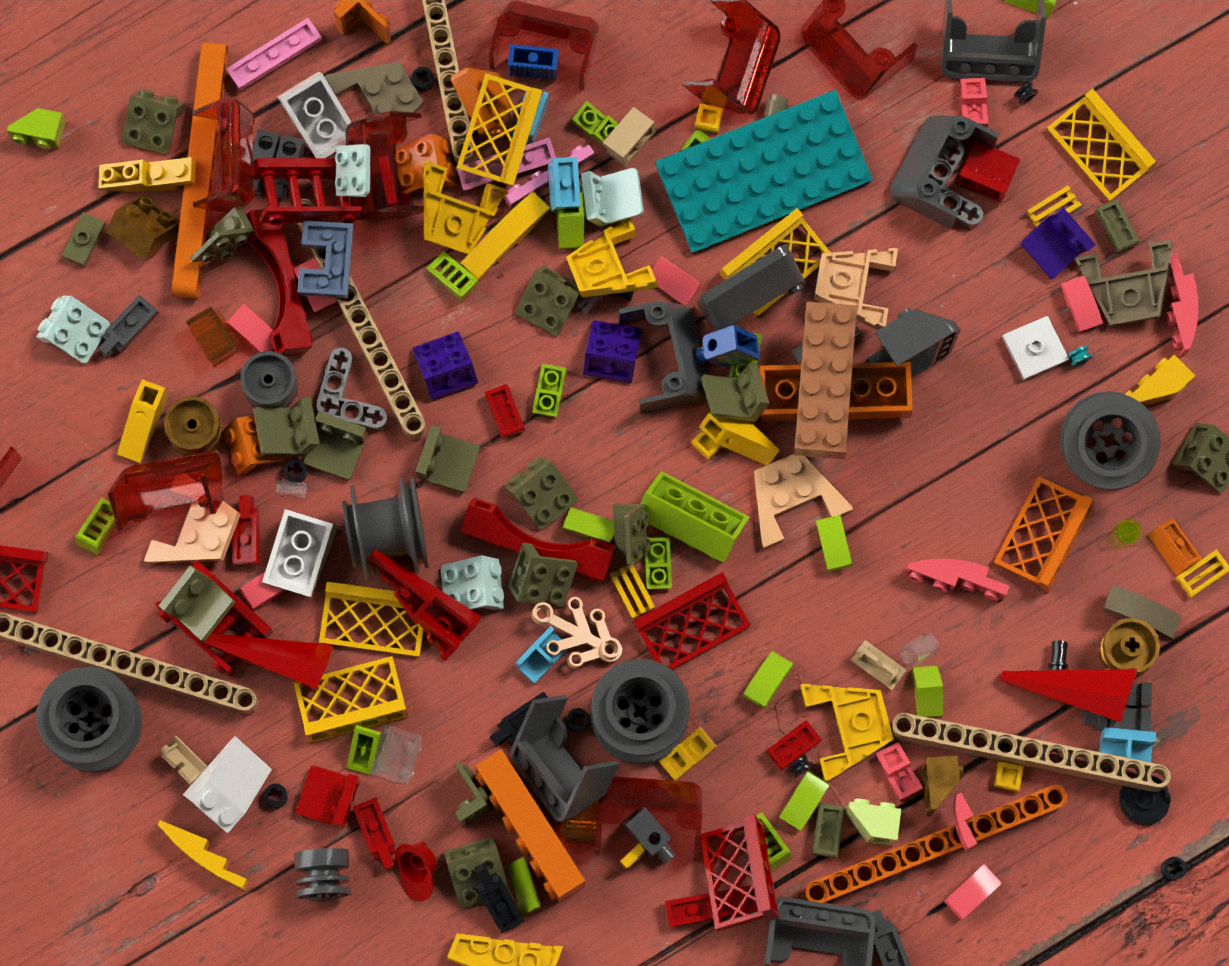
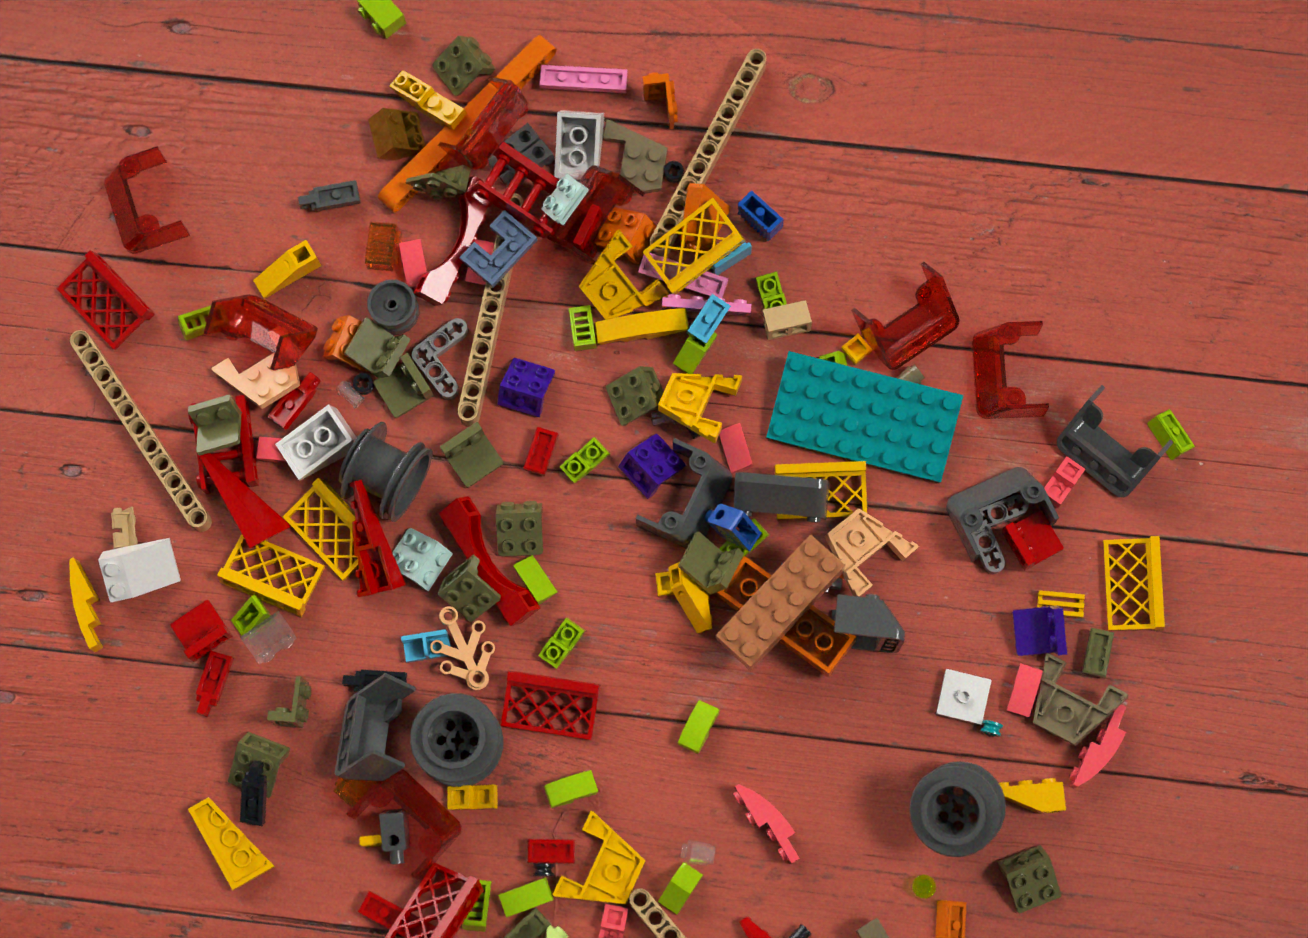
camera: 45 degrees right, 0 degrees up
(73, 328) = (293, 171): light aqua bracket -> none
(76, 689) = (91, 475): dark grey wheel -> none
(83, 239) = (351, 114): olive plate -> none
(190, 412) = (317, 299): pearl gold wheel -> none
(283, 800) = (161, 605): black bush -> none
(322, 874) = (149, 682): dark grey wheel -> none
(415, 869) = (218, 728): red piece -> none
(523, 886) = (283, 801): lime slope -> none
(530, 826) = (316, 761): orange brick -> none
(576, 728) = (410, 706): black bush -> none
(578, 29) = (811, 217): clear red windscreen -> none
(611, 196) = (738, 353): light aqua bracket -> none
(622, 572) = (531, 629): yellow tile -> none
(630, 531) = (557, 606): olive bracket -> none
(693, 516) = (612, 628): lime slope -> none
(787, 486) = (700, 659): light nougat wing -> none
(878, 665) = (659, 840): tan hinge -> none
(1026, 93) = (1107, 502): black bush -> none
(1065, 539) = (863, 859): orange fence -> none

